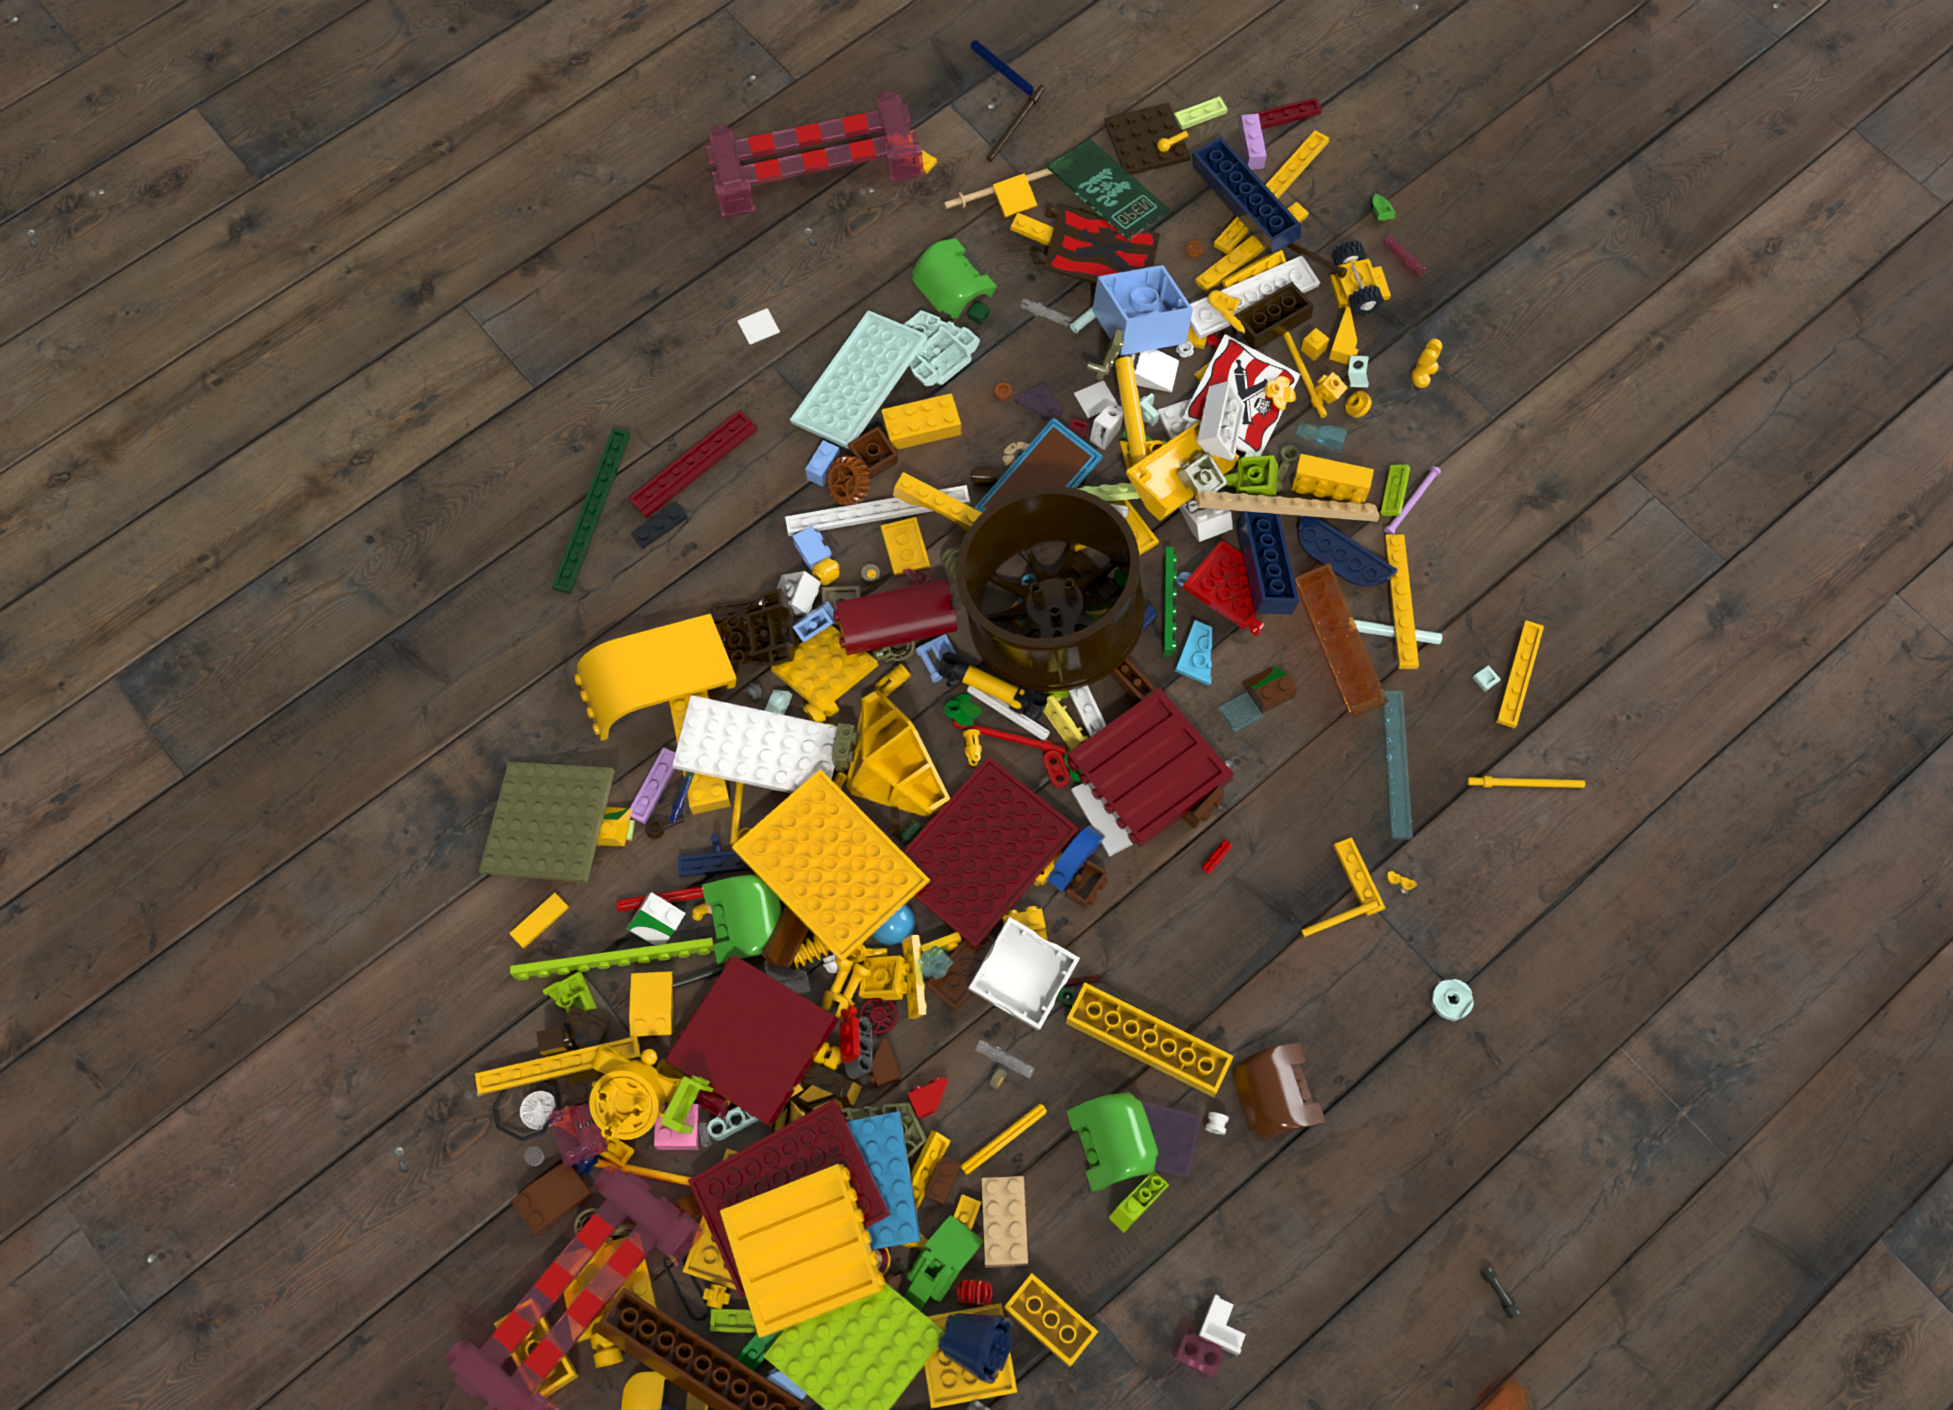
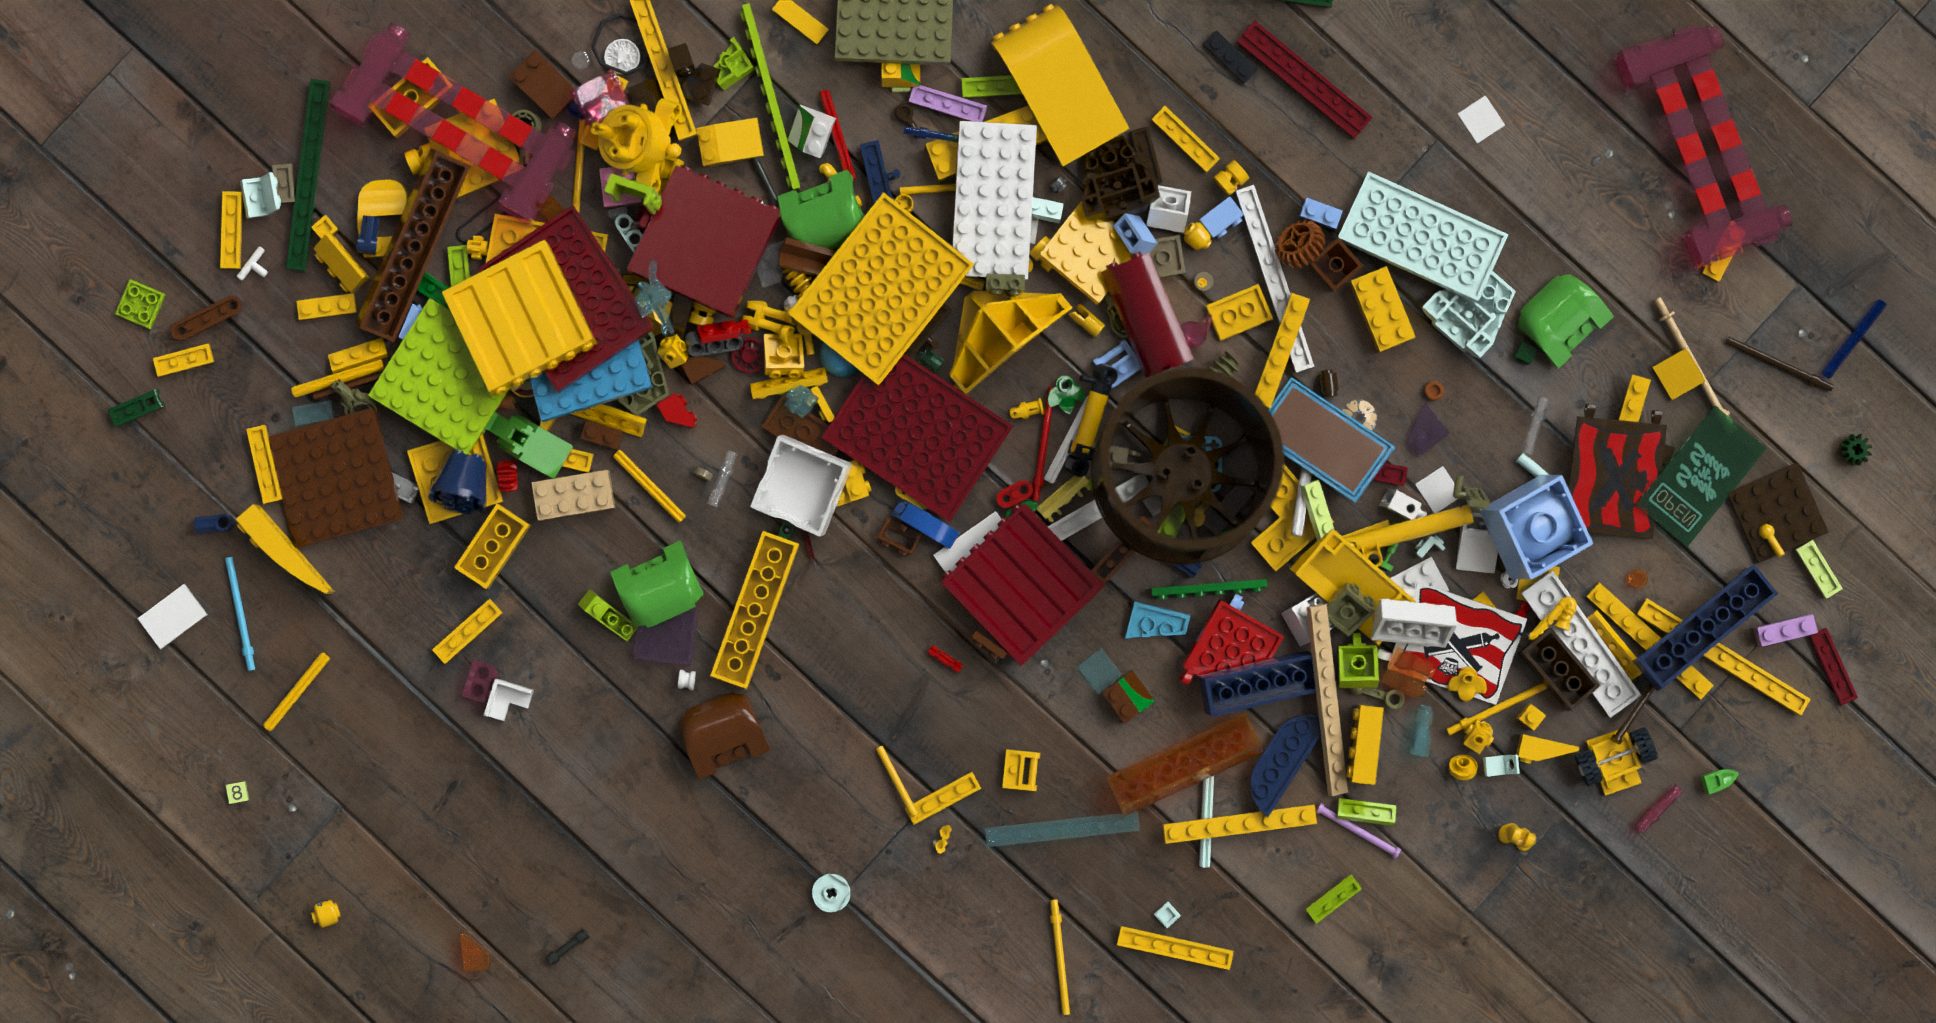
camera: 80 degrees right, 20 degrees up
(645, 738) = (989, 86): none -> lime plate
(730, 572) = (1185, 139): none -> yellow plate
(775, 535) = (1231, 177): none -> yellow wheel
(803, 1093) = (654, 297): none -> clear light blue piece
(863, 1091) = (673, 351): none -> yellow brick
(1099, 74) = (1861, 446): none -> dark green gear
(1142, 1363) = (467, 631): none -> yellow plate
(1266, 437) = (1408, 673): none -> clear orange plate
(1335, 802) = (1014, 770): none -> yellow plate
(1477, 528) = (1333, 899): none -> lime plate

